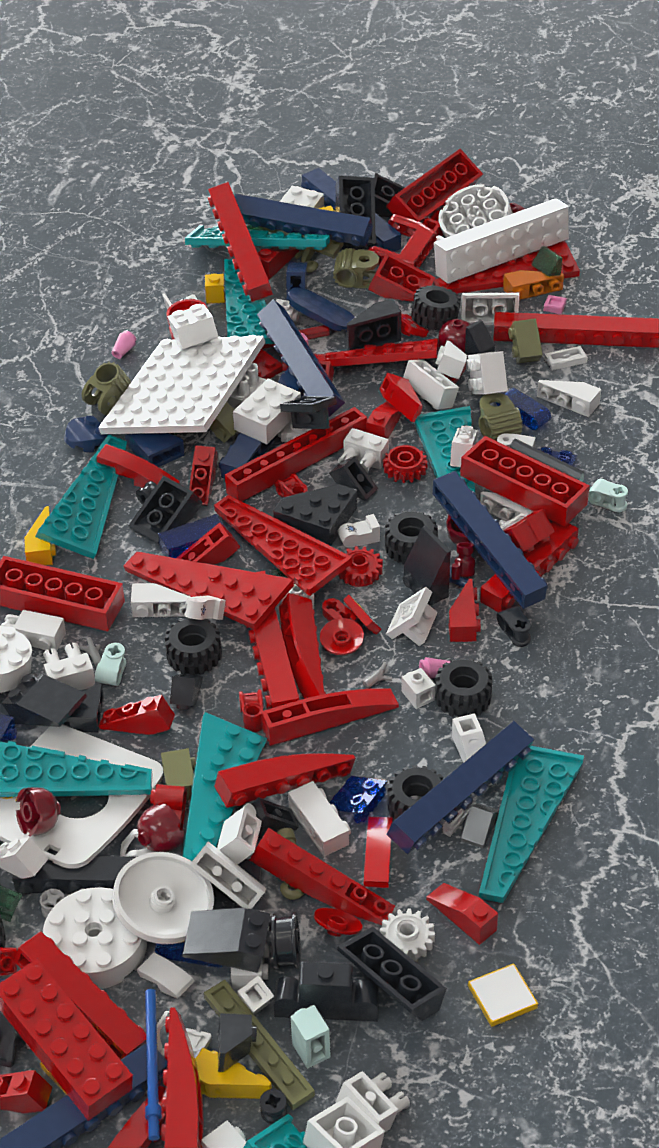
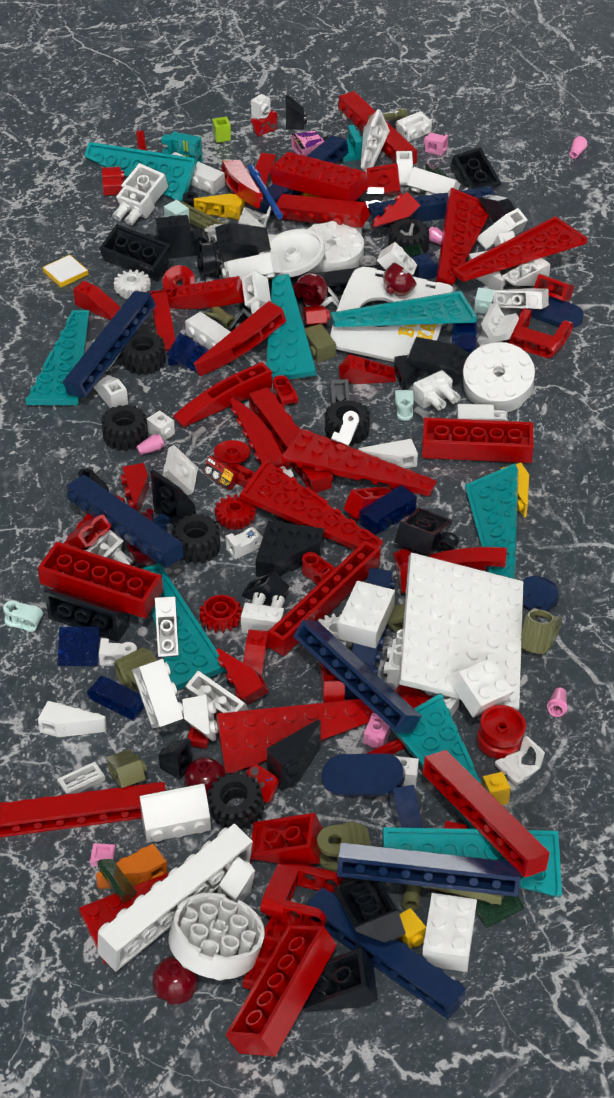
camera: 165 degrees right, 0 degrees up
(234, 1039) = (221, 206): black slope -> none
(309, 411) = (323, 603): black bracket -> none

